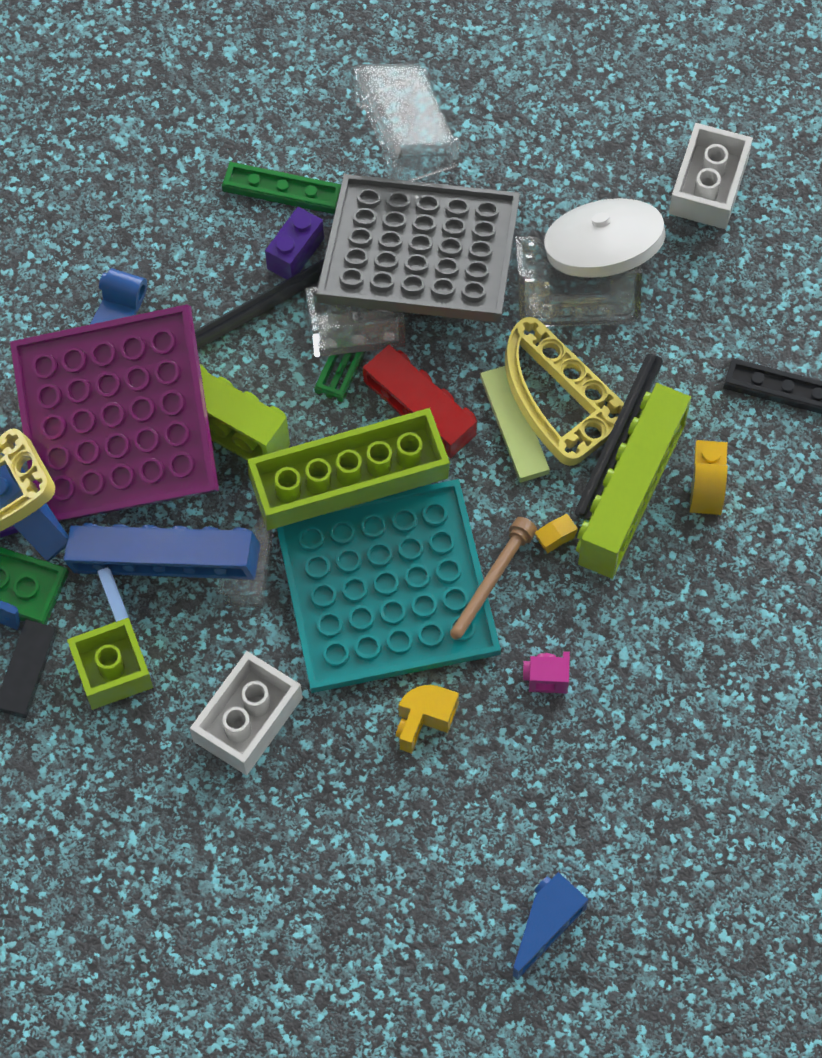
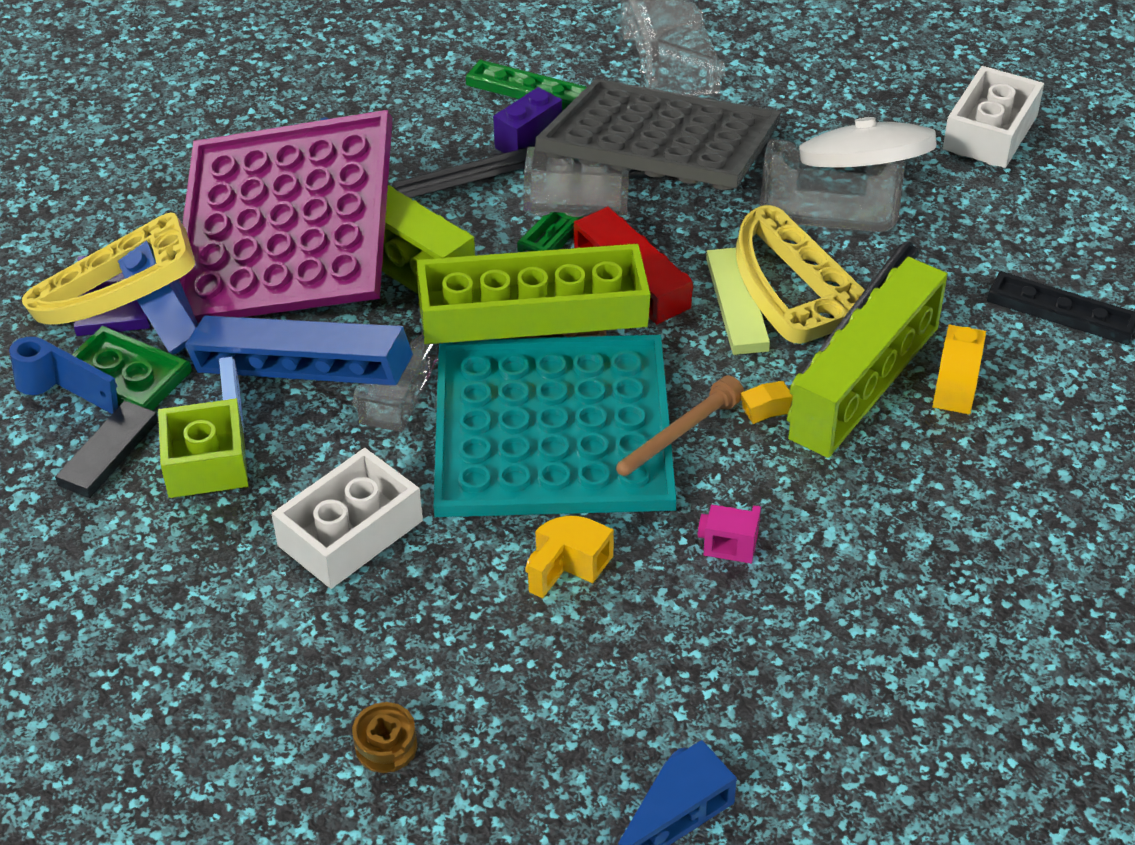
camera: 10 degrees right, 20 degrees down
(322, 902) = (384, 737): none -> pearl gold wheel

